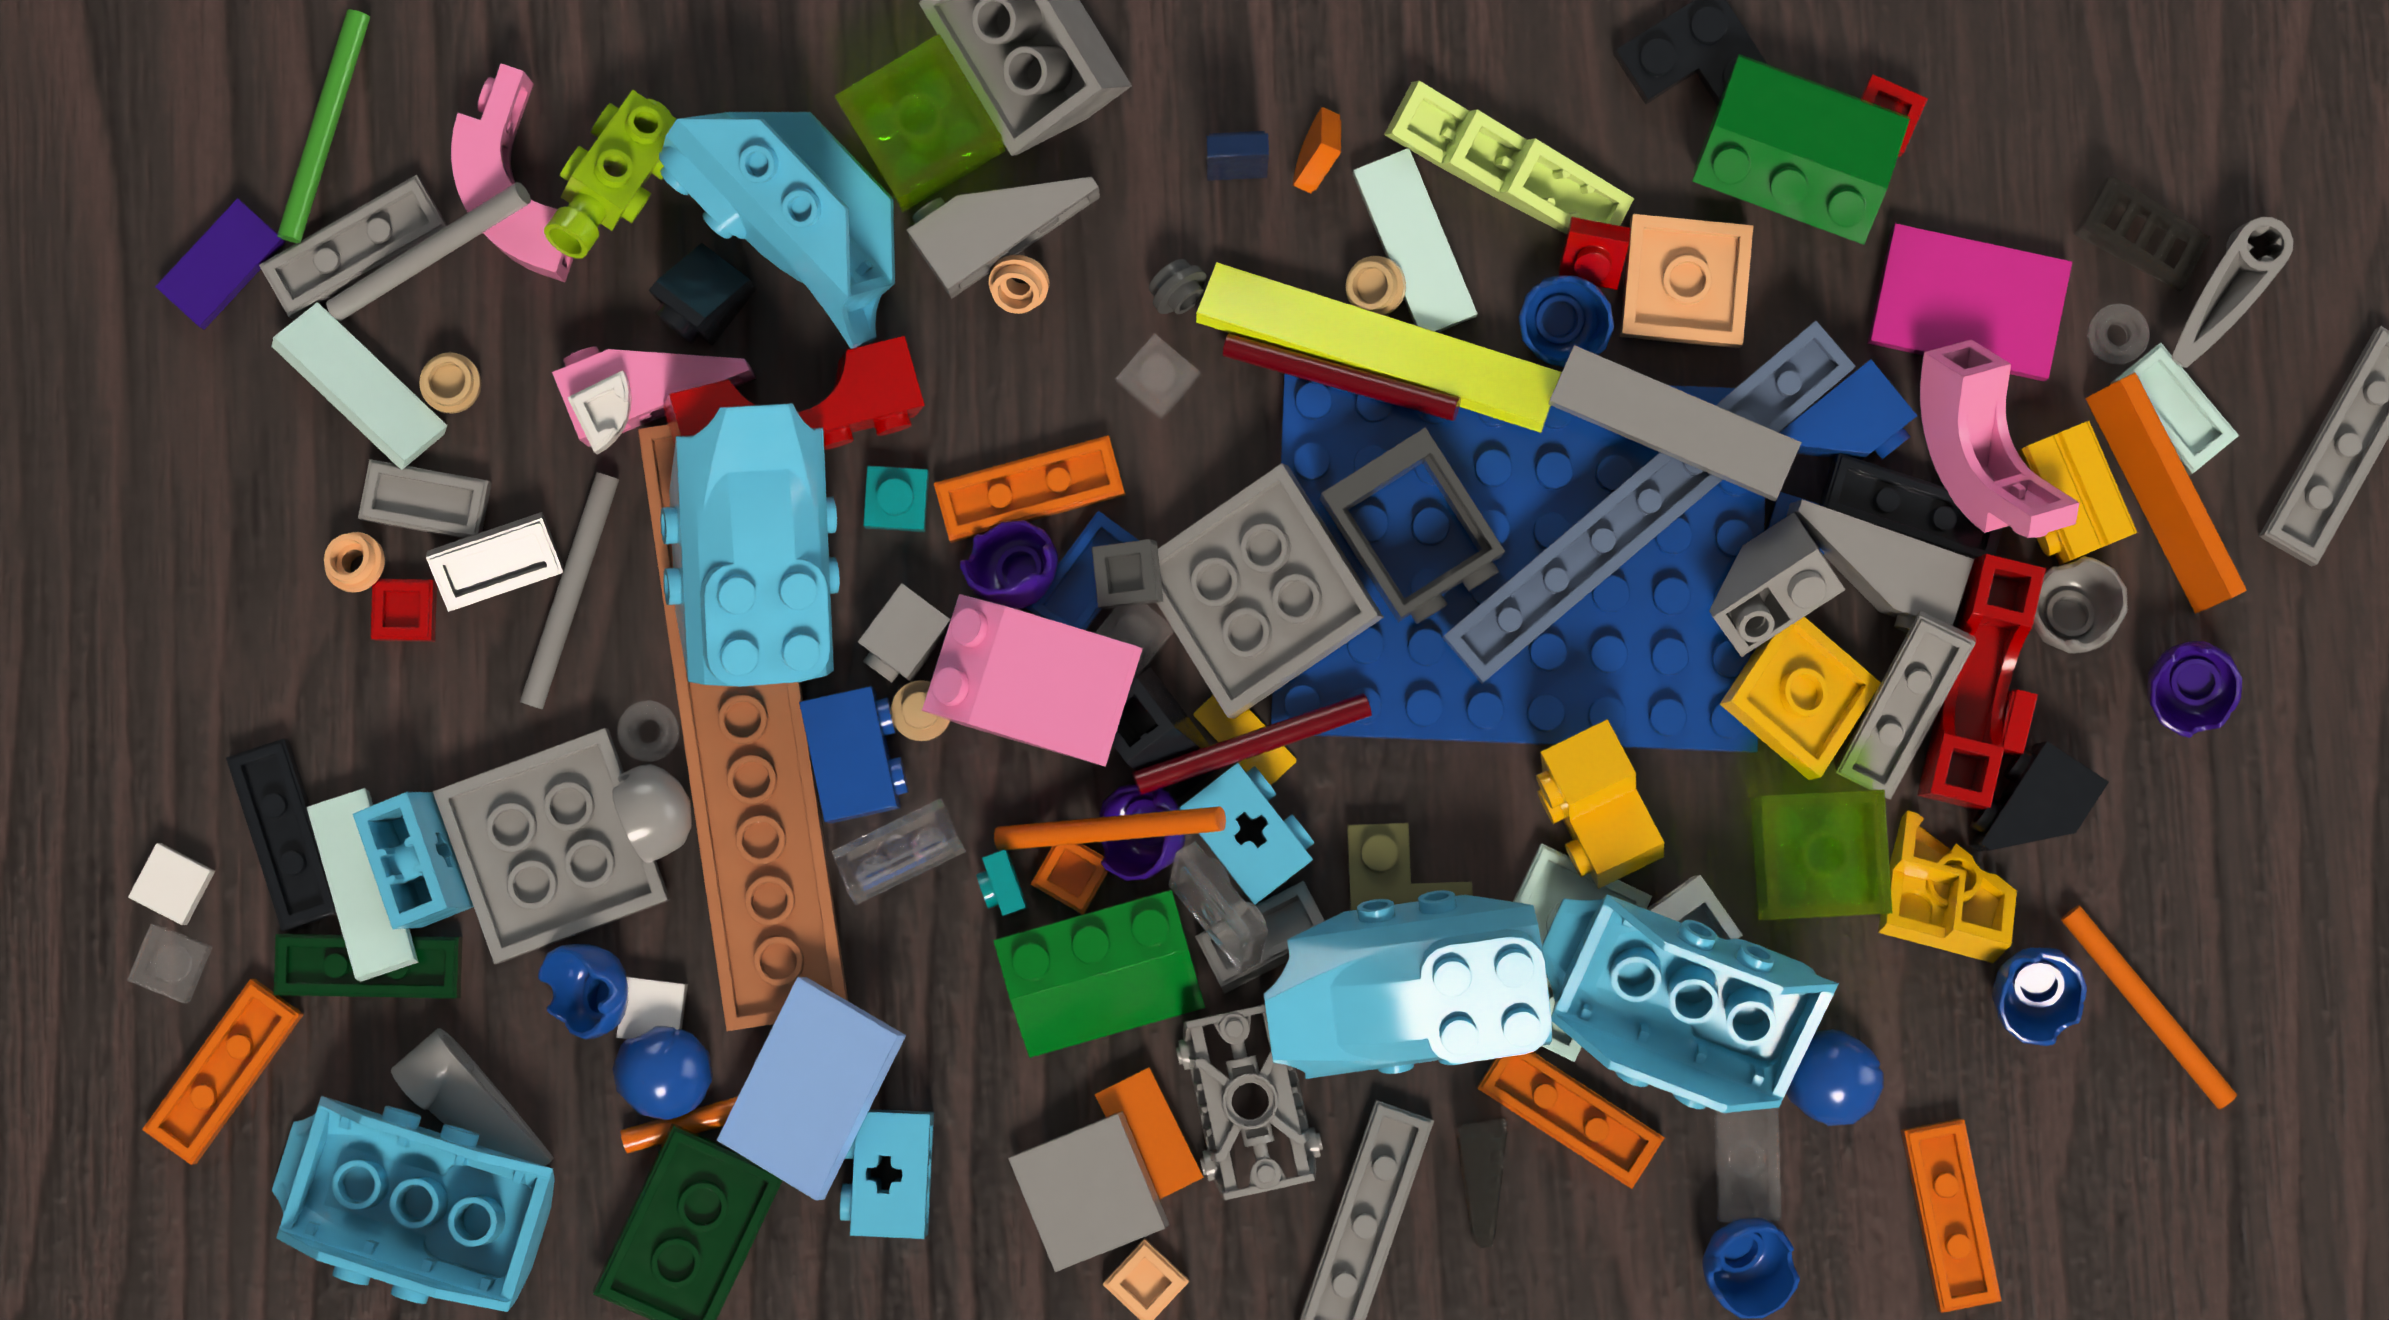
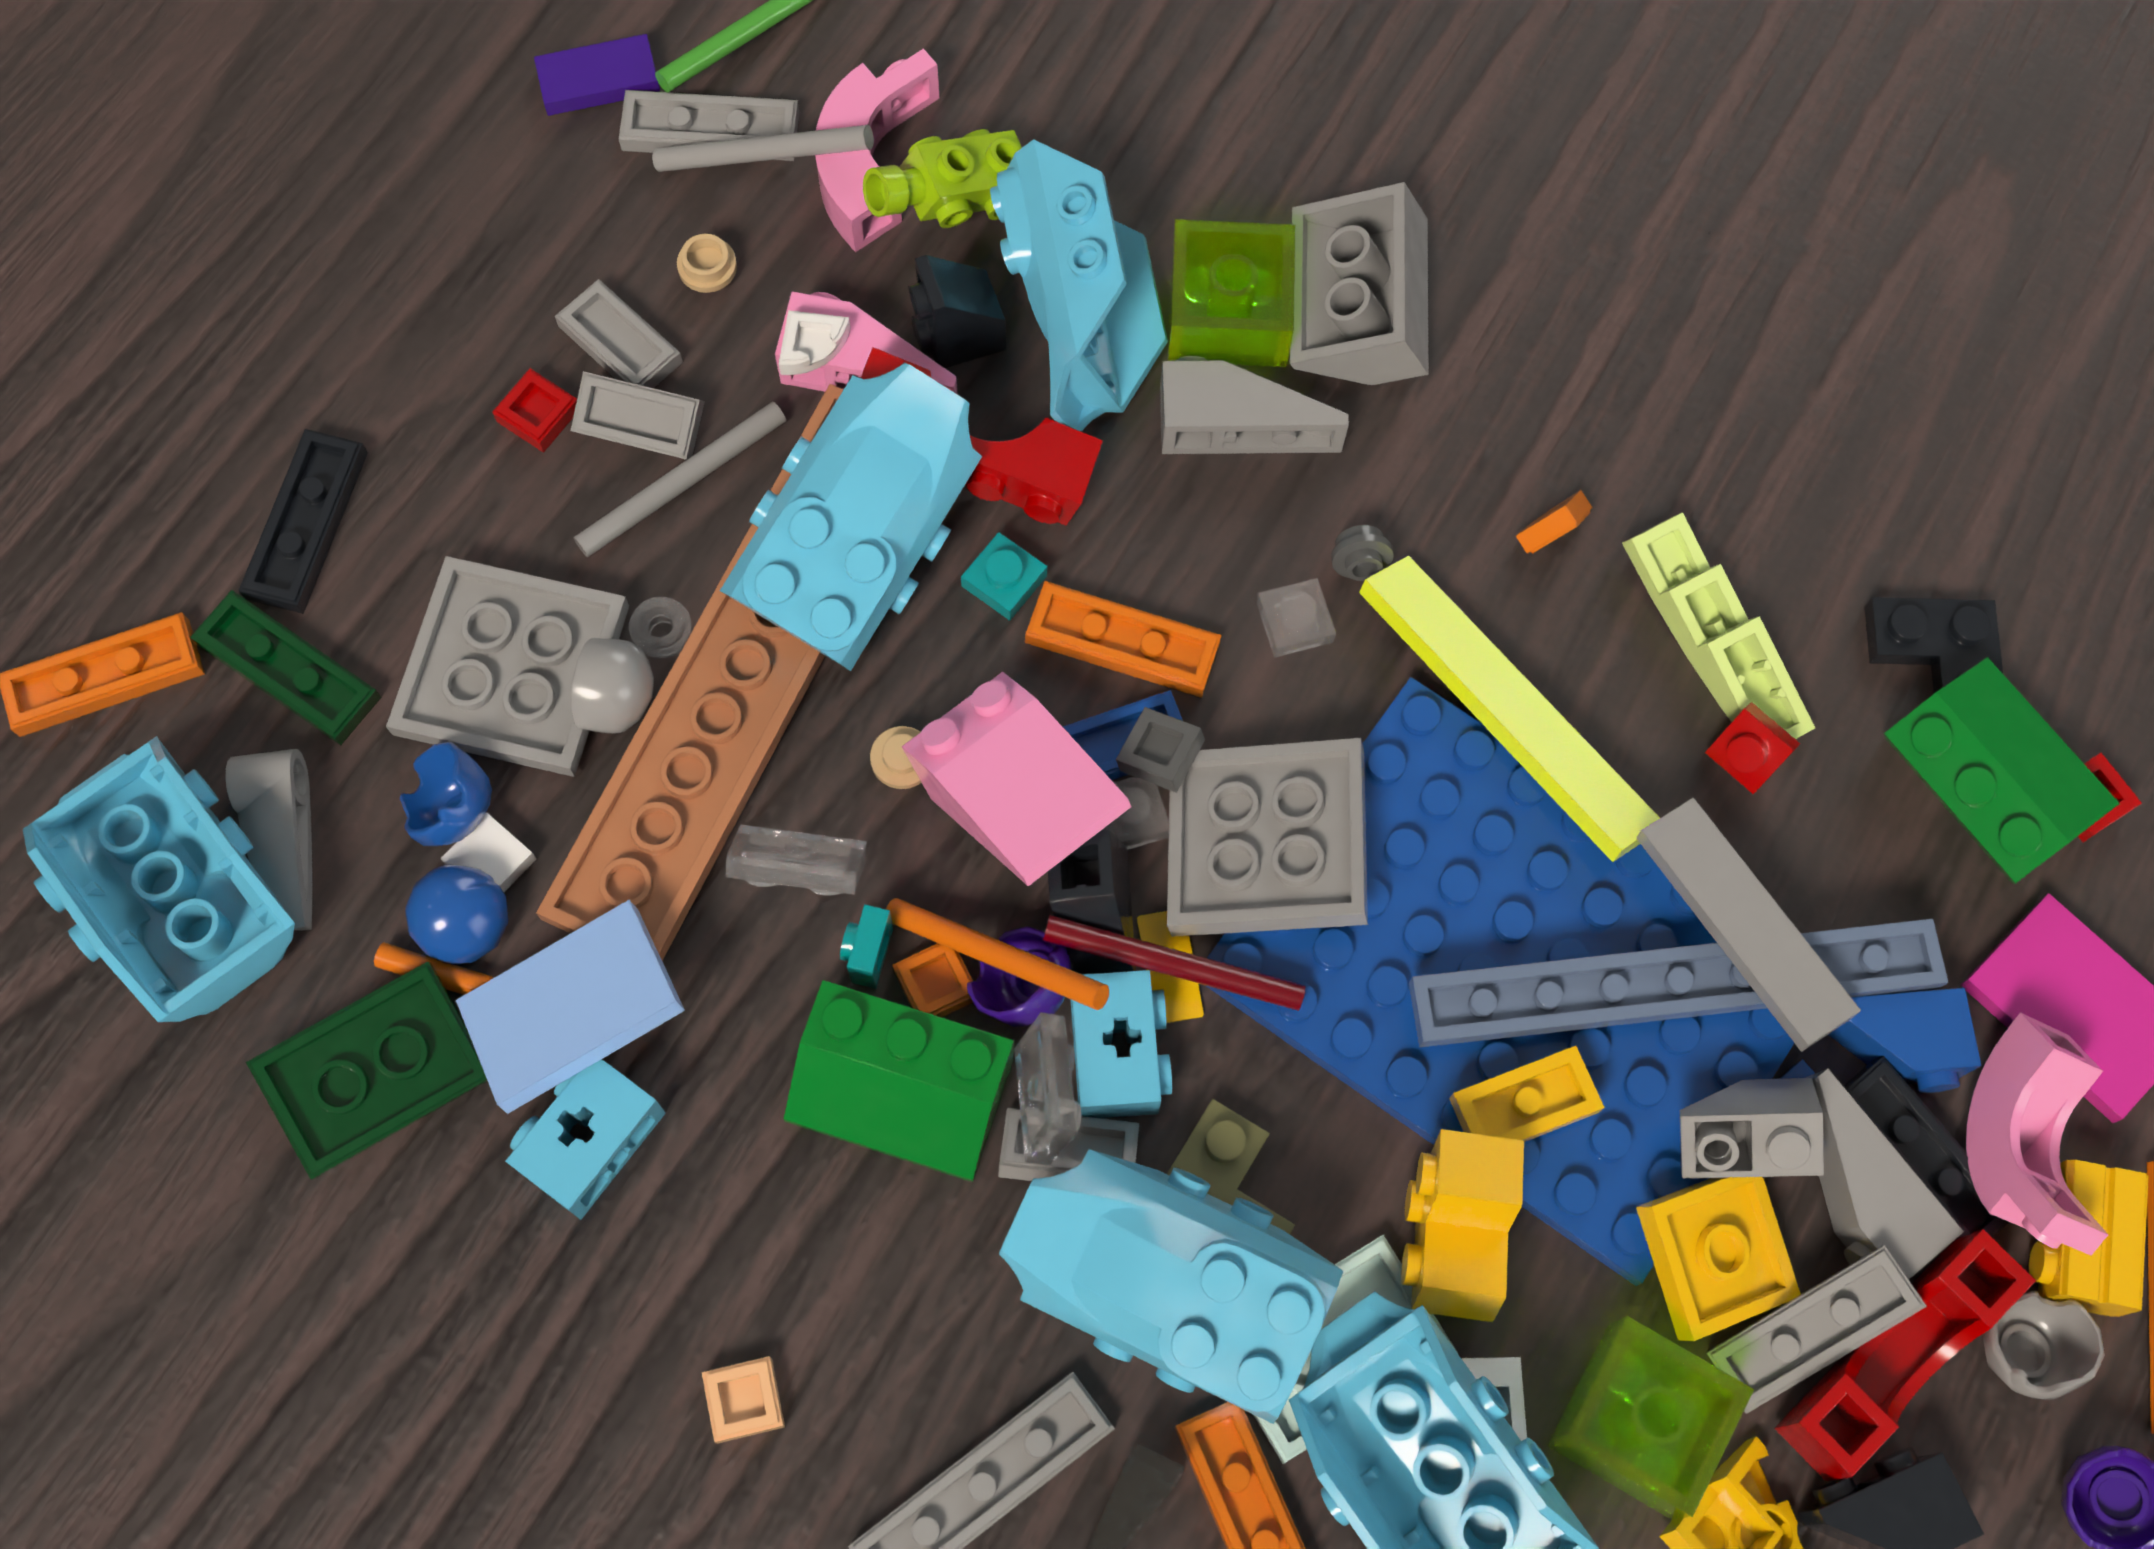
camera: 30 degrees right, 15 degrees down
(170, 963) = (128, 556): clear plate -> none
(171, 884) = (183, 499): white tile -> none
(341, 554) = (524, 344): light nougat plate -> none
(355, 894) = (330, 595): light aqua tile -> none
(359, 385) = (633, 221): light aqua tile -> none
(412, 860) = (383, 595): medium azure brick -> none
(852, 754) = (816, 753): blue brick -> none
(903, 635) = (929, 680): light grey brick -> none
(1011, 564) = (1066, 681): dark purple hair -> none
(1015, 296) = (1212, 471): light nougat plate -> none
(1089, 1191) = (750, 1275): light grey tile -> none
(1154, 1131) = (841, 1263): orange tile -> none
(1223, 1124) = (981, 1314): light grey piece -> none
(1237, 155) = (1484, 471): dark blue tile -> none
(1341, 377) = (1461, 708): dark red bar -> none
(1376, 285) = (1538, 656): tan plate -> none
(1378, 474) = (1446, 803): dark grey window -> none
(1415, 241) = (1594, 645): light aqua tile -> none
(1565, 314) = (1695, 771): blue hair -> none
(1590, 675) = (1529, 1099): none -> yellow plate
(1686, 281) = (1823, 824): light nougat plate -> none
(2017, 721) = (1920, 1416): red tile -> none

